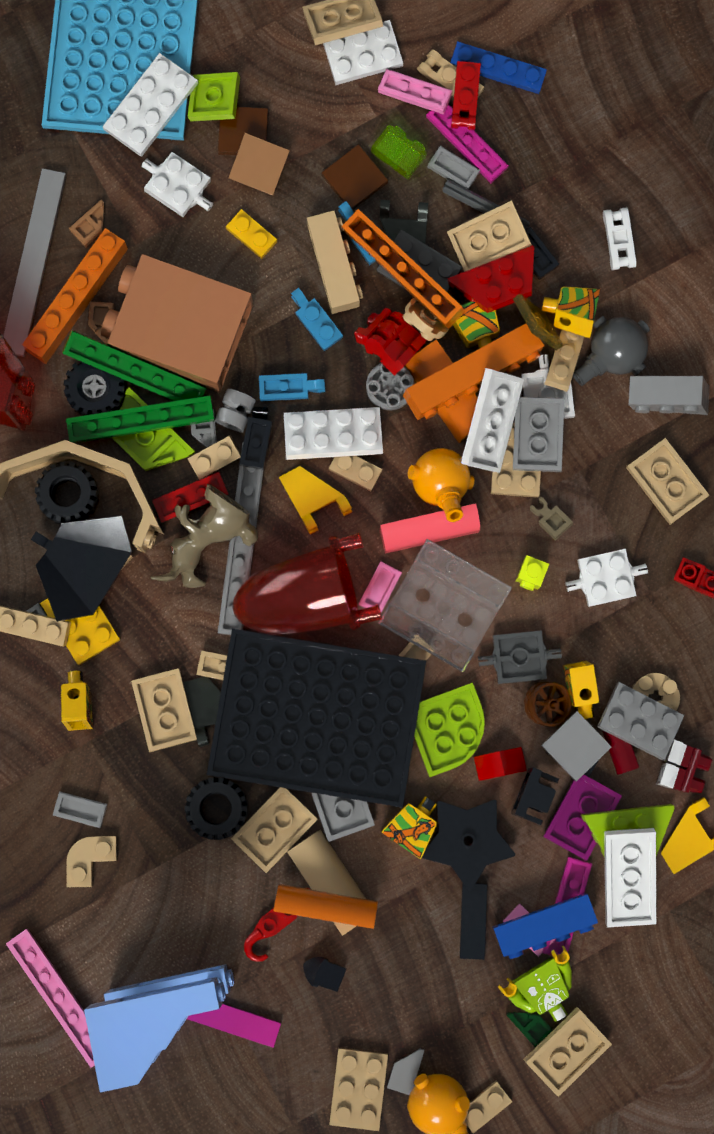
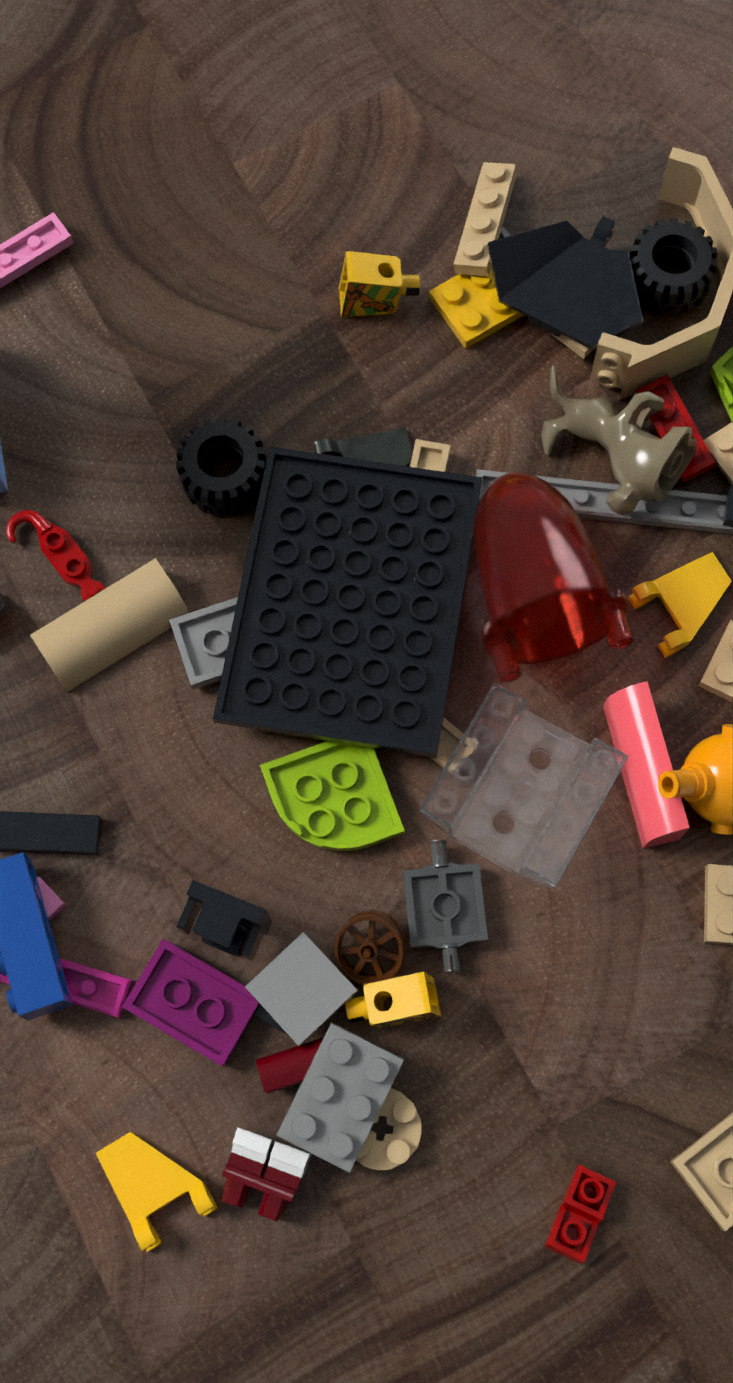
camera: 100 degrees right, 10 degrees down
(80, 809) = (229, 302): light grey tile -> none
(84, 853) = (167, 307): tan plate -> none
(164, 710) = (365, 400): tan plate -> none
(274, 829) = (191, 548): tan plate -> none
(325, 906) = (68, 603): orange brick -> none
(380, 586) = (551, 697): bright pink tile -> none
(412, 827) = (184, 740): torso -> none
(449, 844) = (181, 841): black plate -> none
(500, 763) = (279, 876): red slope -> none
(532, 573) = (579, 925): neon yellow brick -> none
(553, 520) = (667, 963): dark tan plate -> none
(606, 577) = (577, 1051): white plate -> none
(626, 819) = (165, 1079): lime wing -> none
(630, 877) = (90, 1073): white plate -> none

